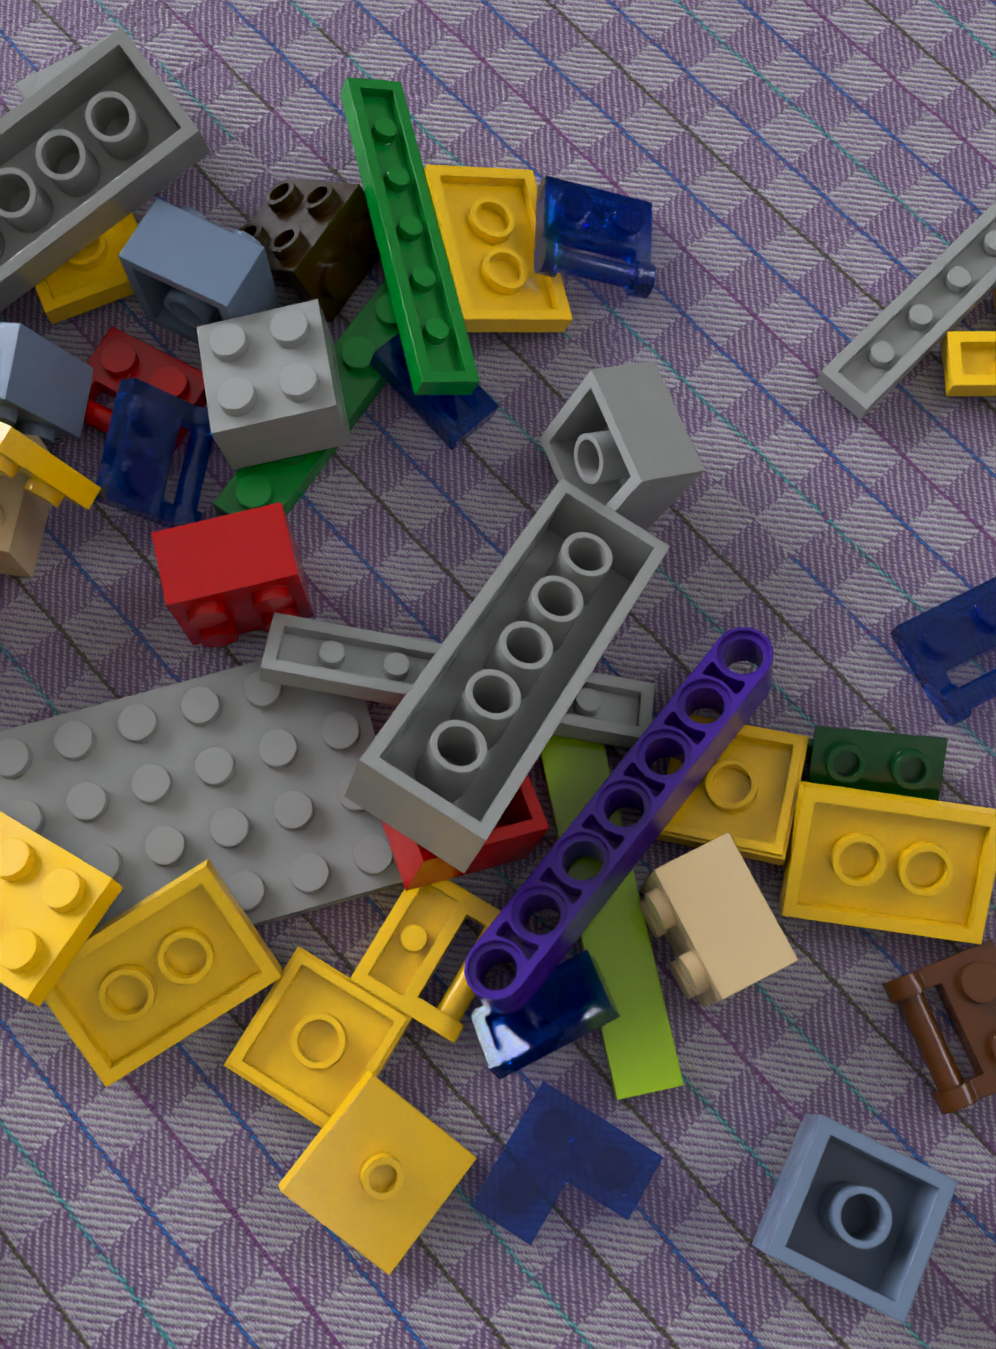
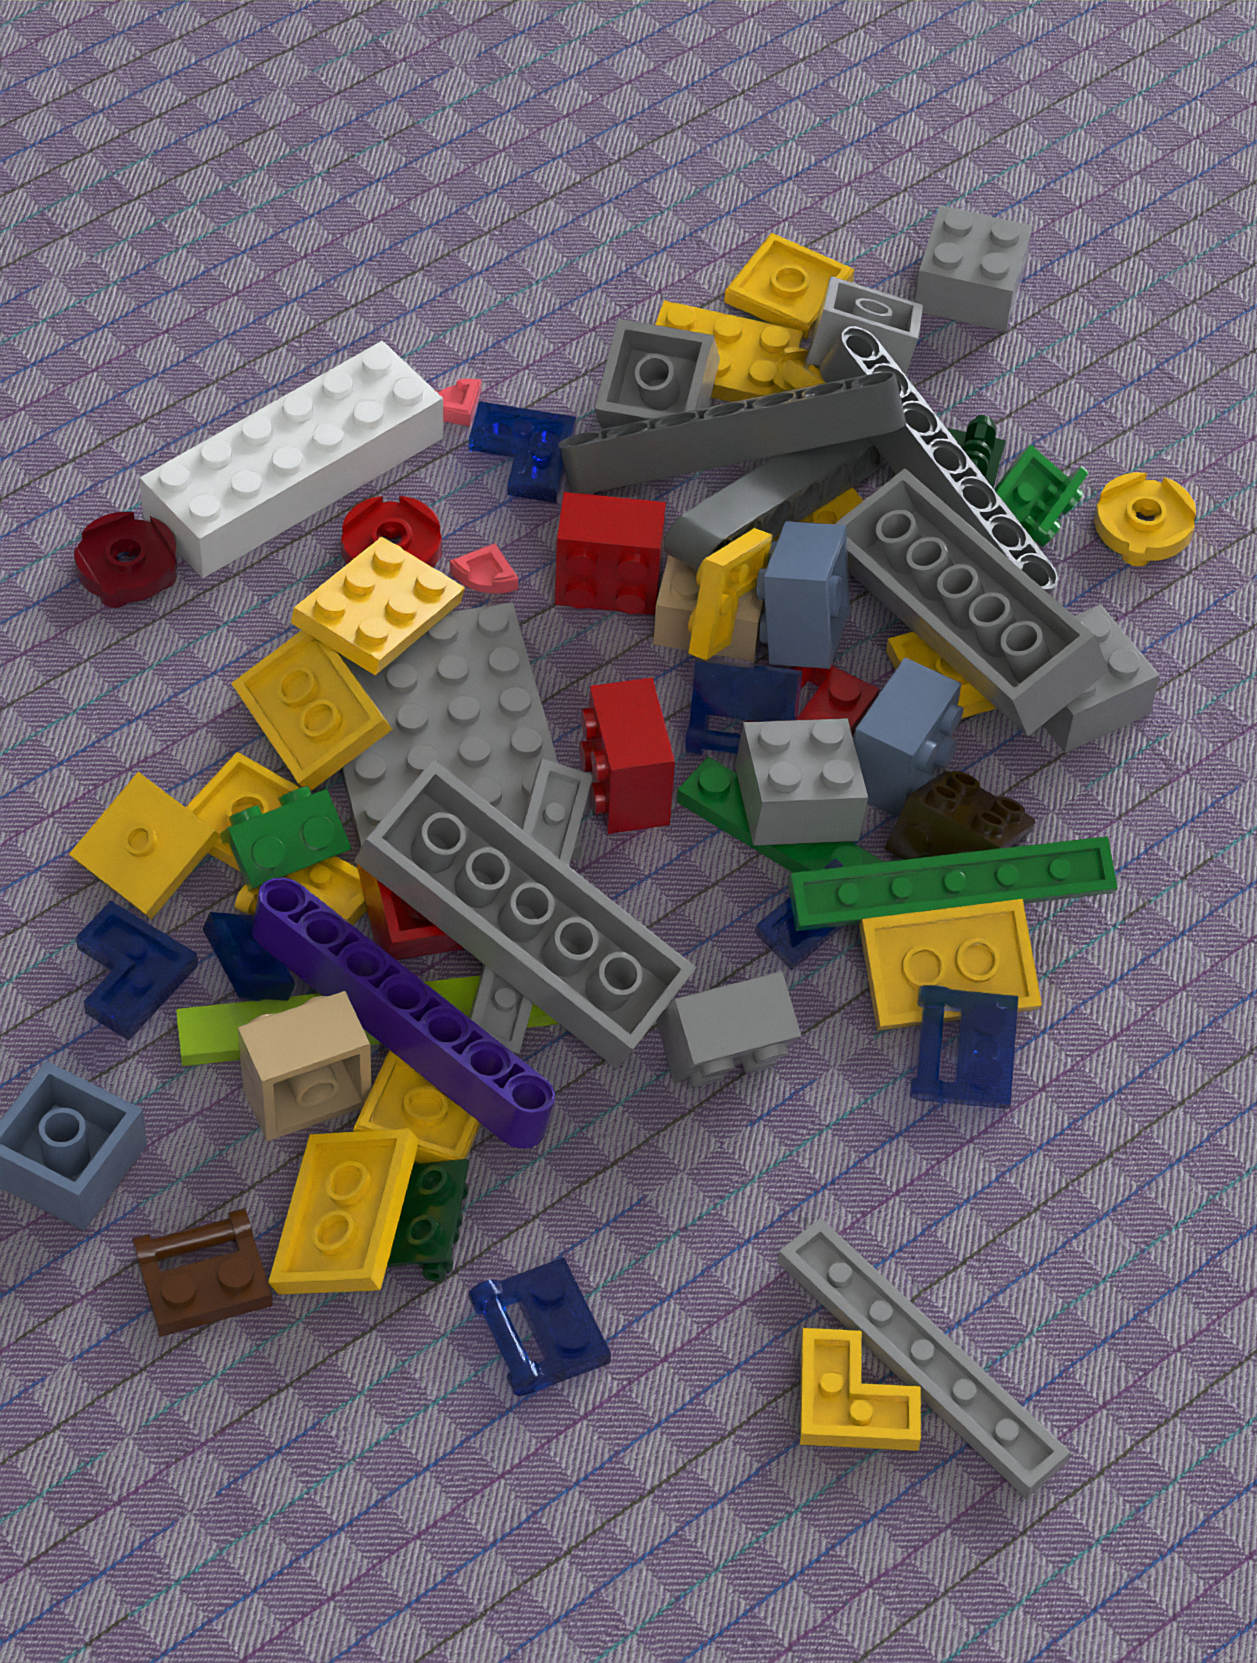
camera: 90 degrees right, 20 degrees down
(374, 984) = (285, 838): none -> green bracket

